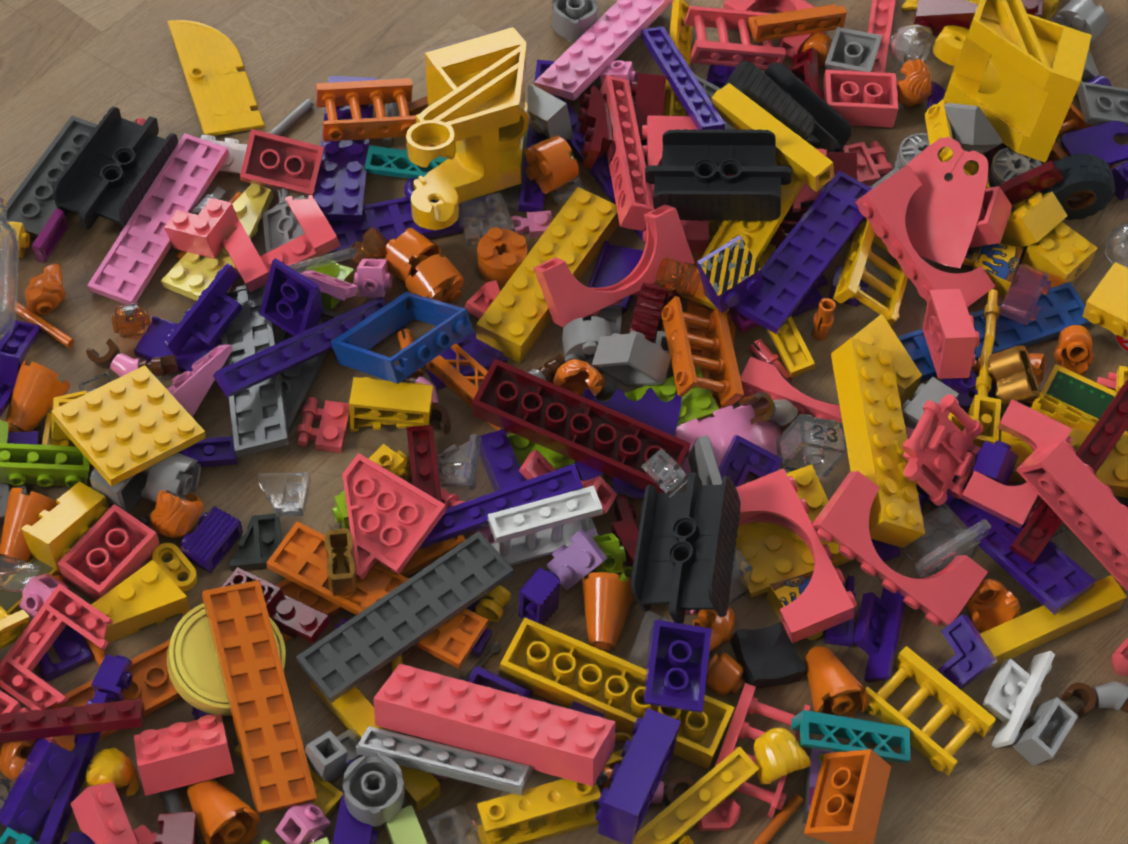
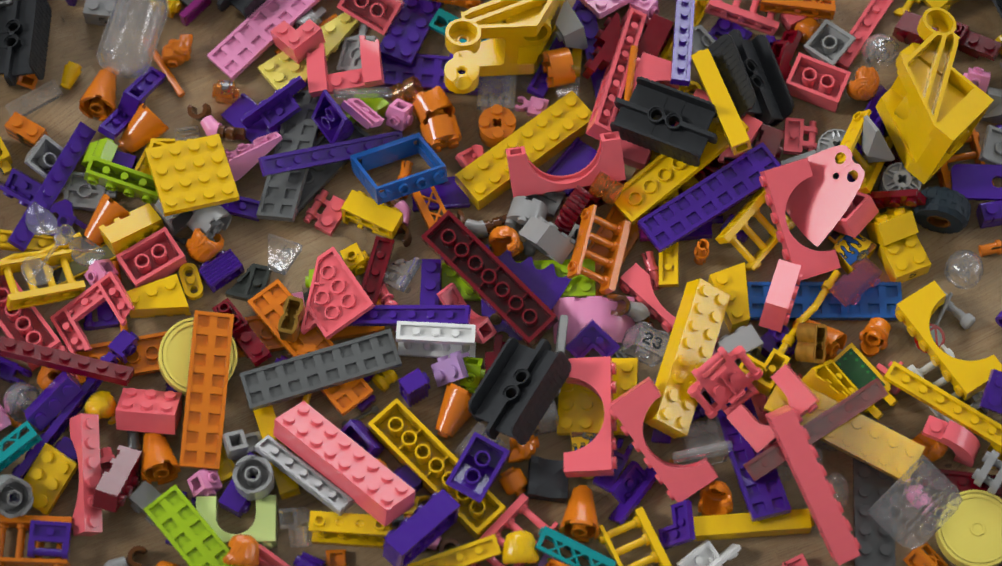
camera: 25 degrees right, 10 degrees up
(643, 138) = (631, 72): none -> orange bar
(665, 472) = (527, 332): clear brick -> none
(730, 274) = (640, 200): slope -> none
(996, 461) = (759, 403): dark purple brick -> none

